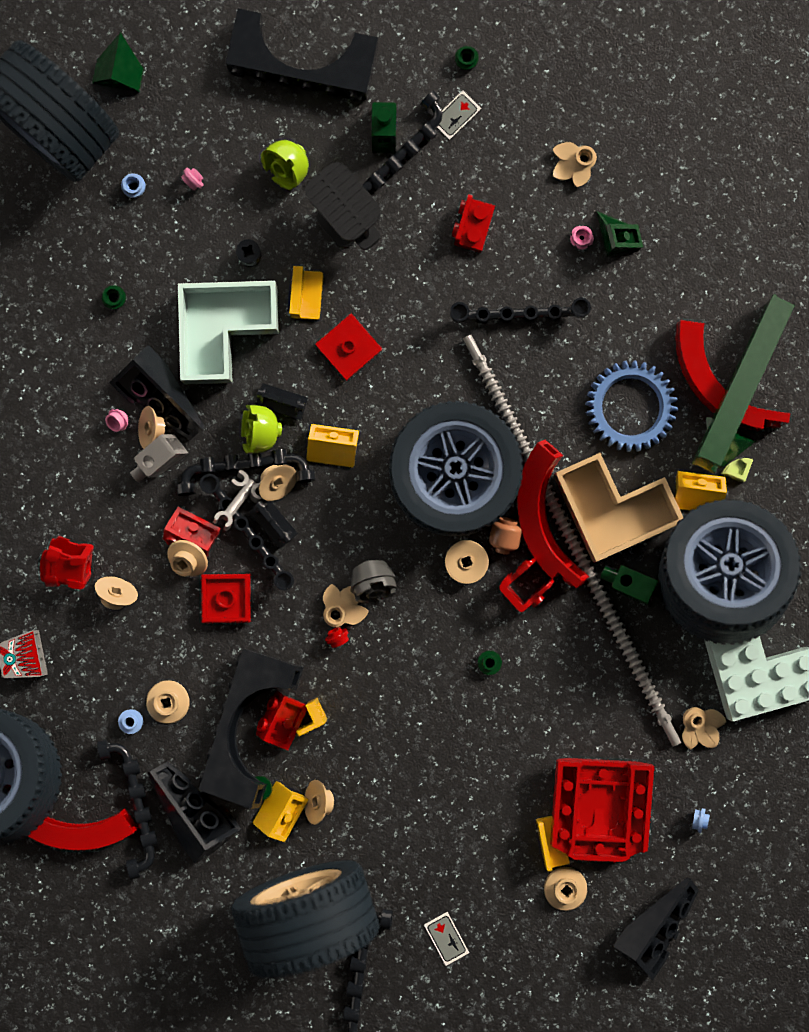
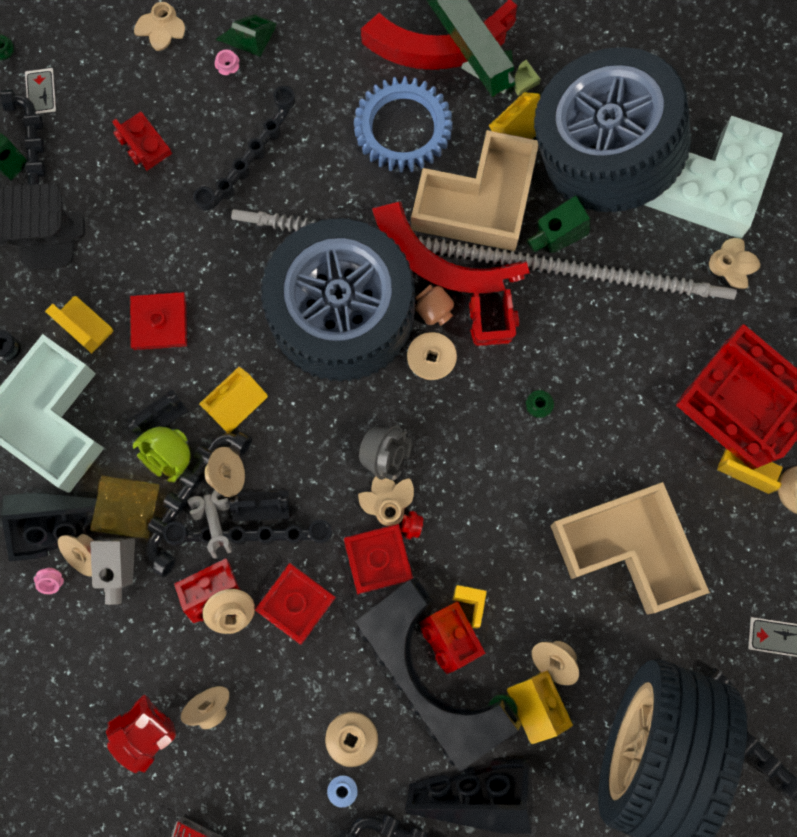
camera: 45 degrees left, 10 degrees down
(202, 432) = (124, 506): none -> clear yellow hinge
(297, 631) = (378, 559): none -> red plate
(446, 796) = (644, 534): none -> tan piece

